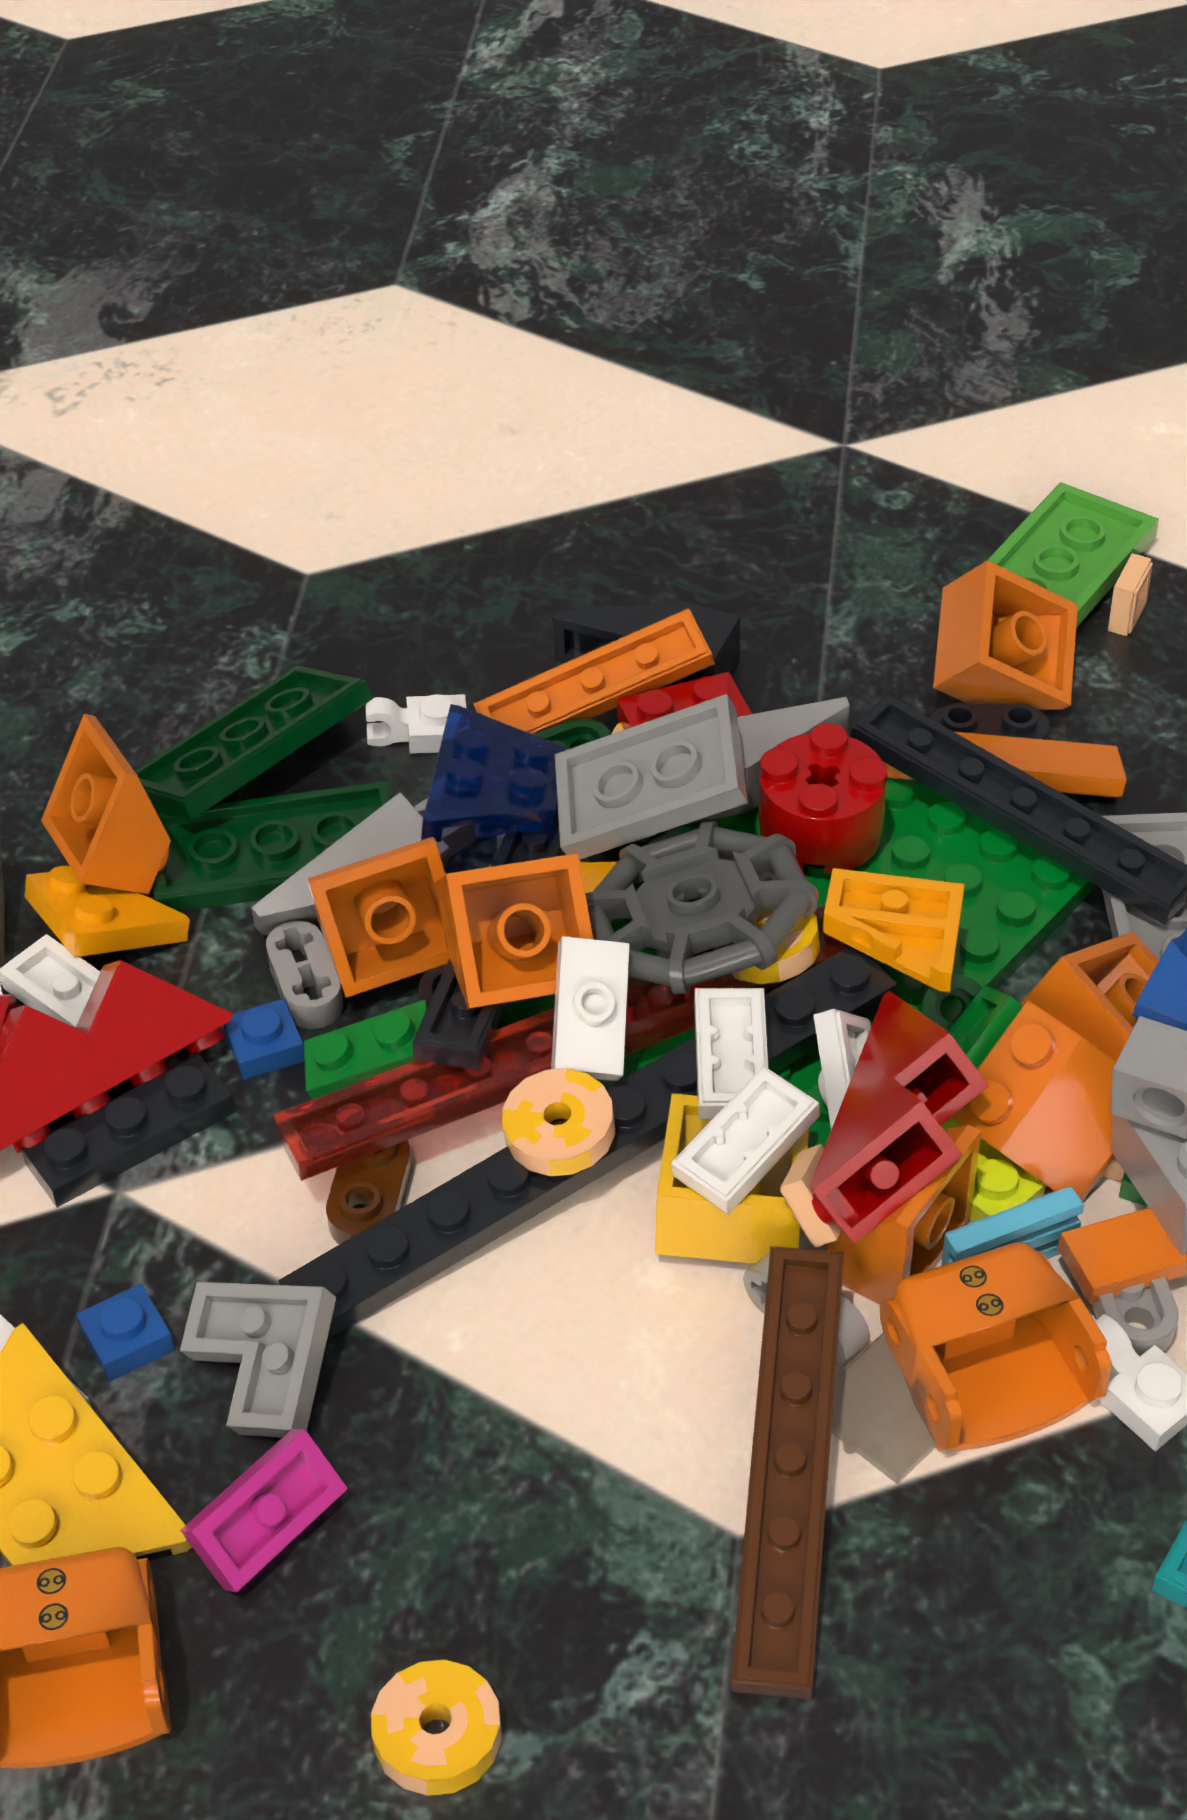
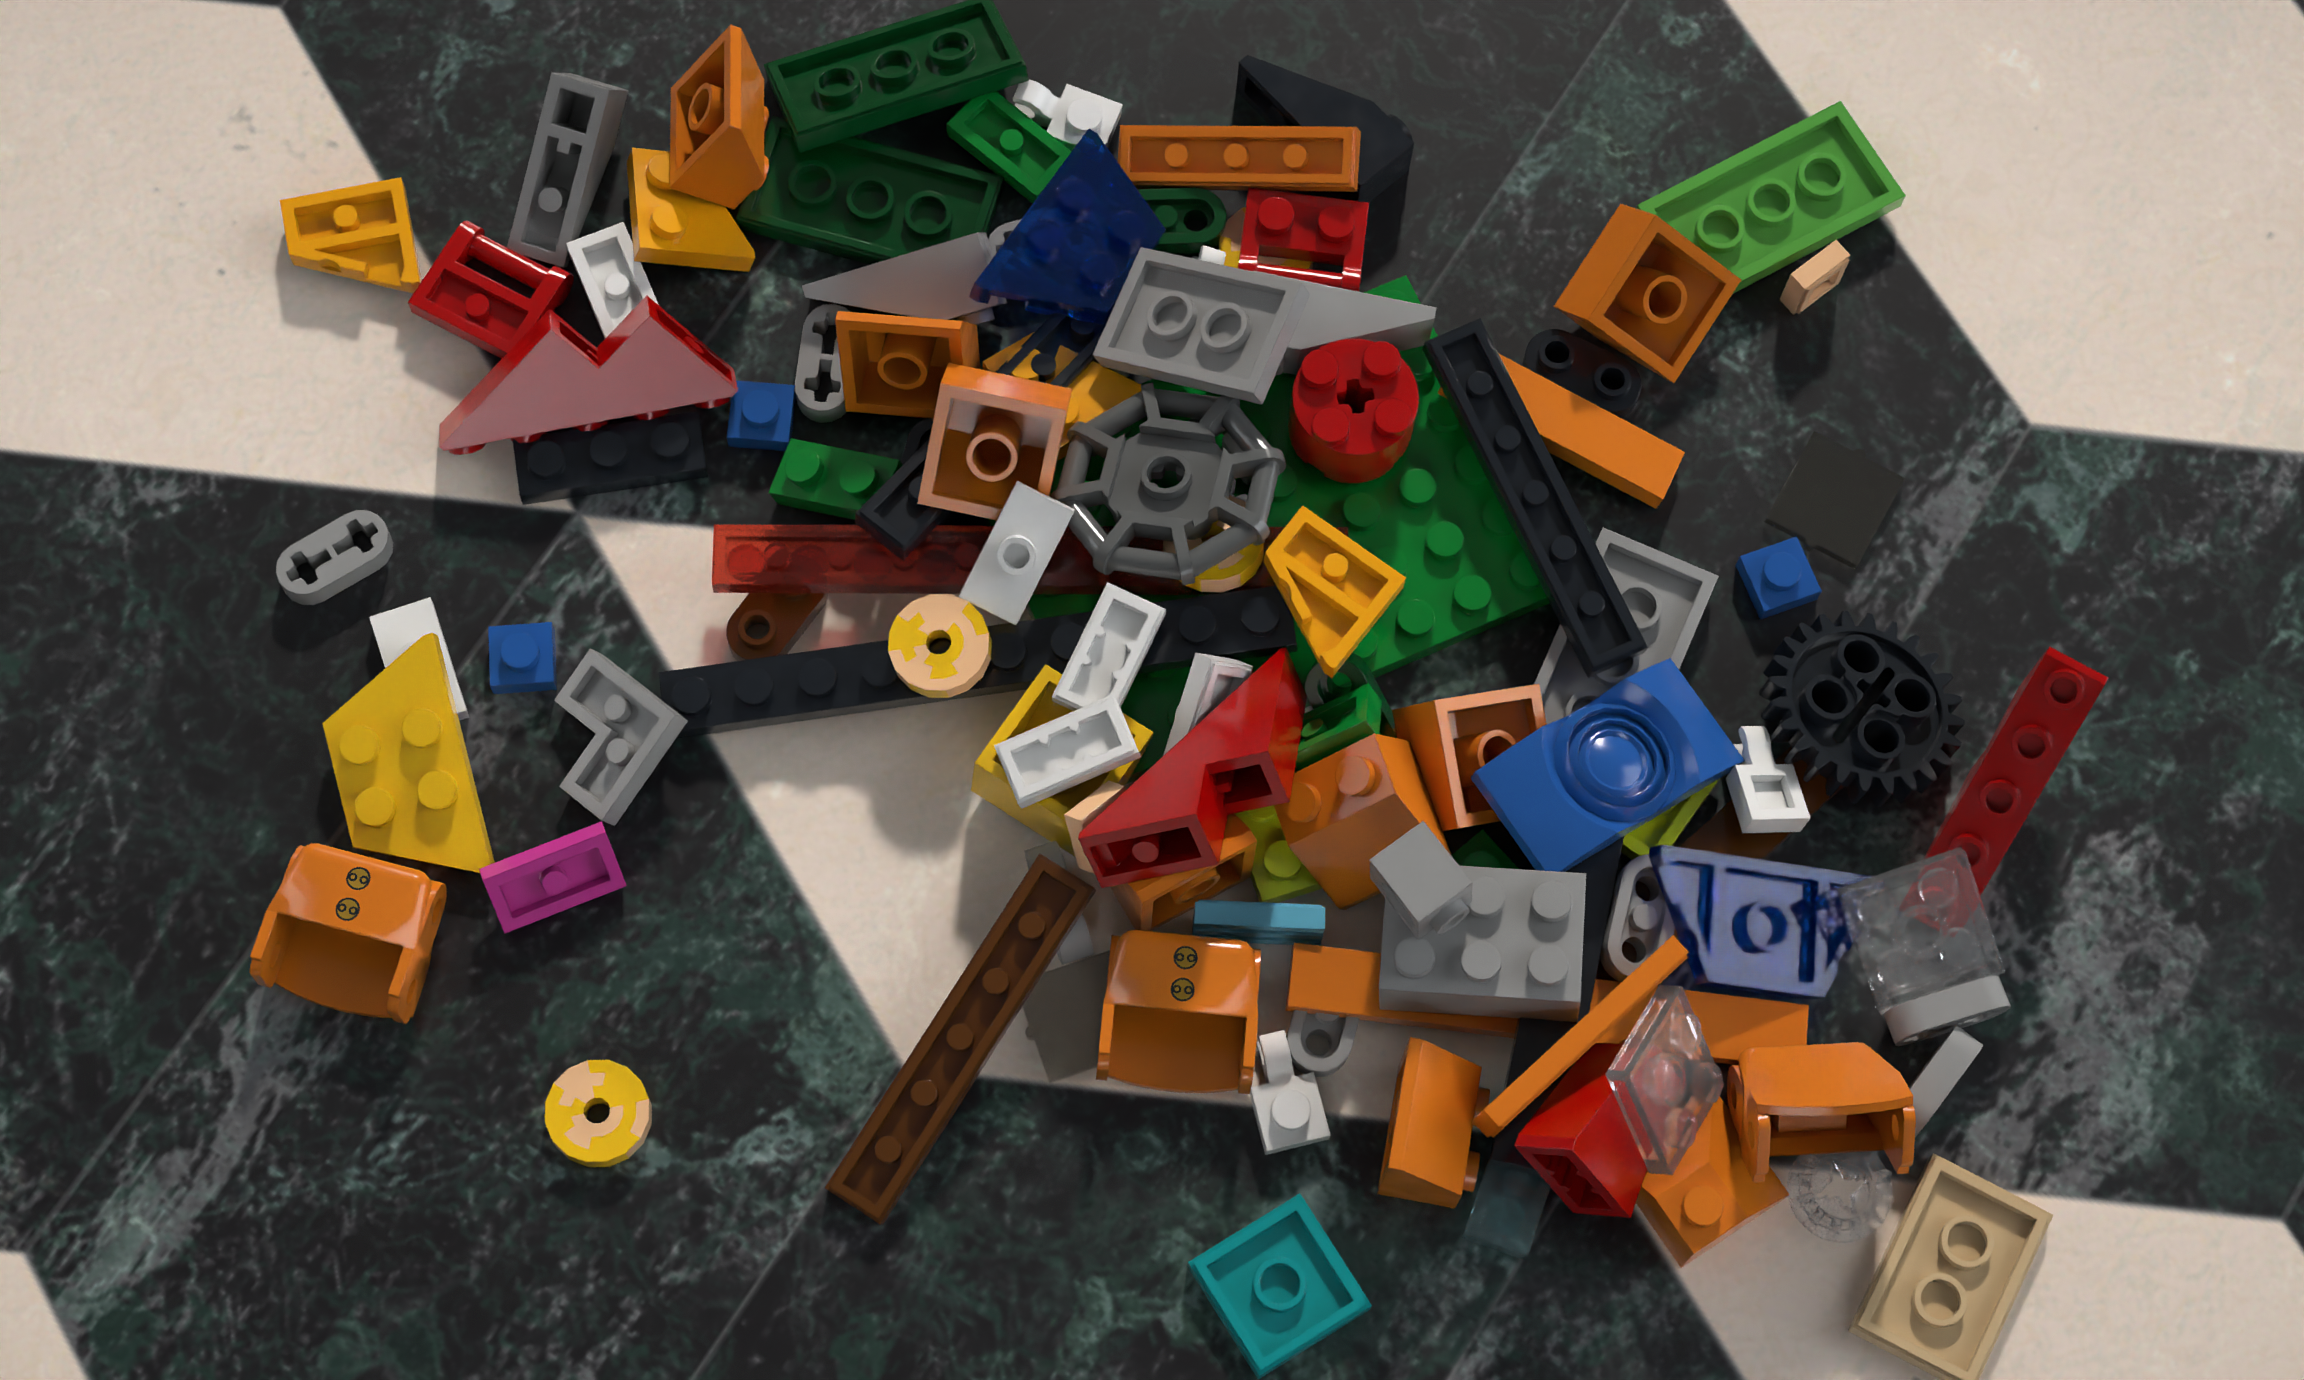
camera: 20 degrees right, 25 degrees up
(379, 754) = (1008, 143): none -> green plate

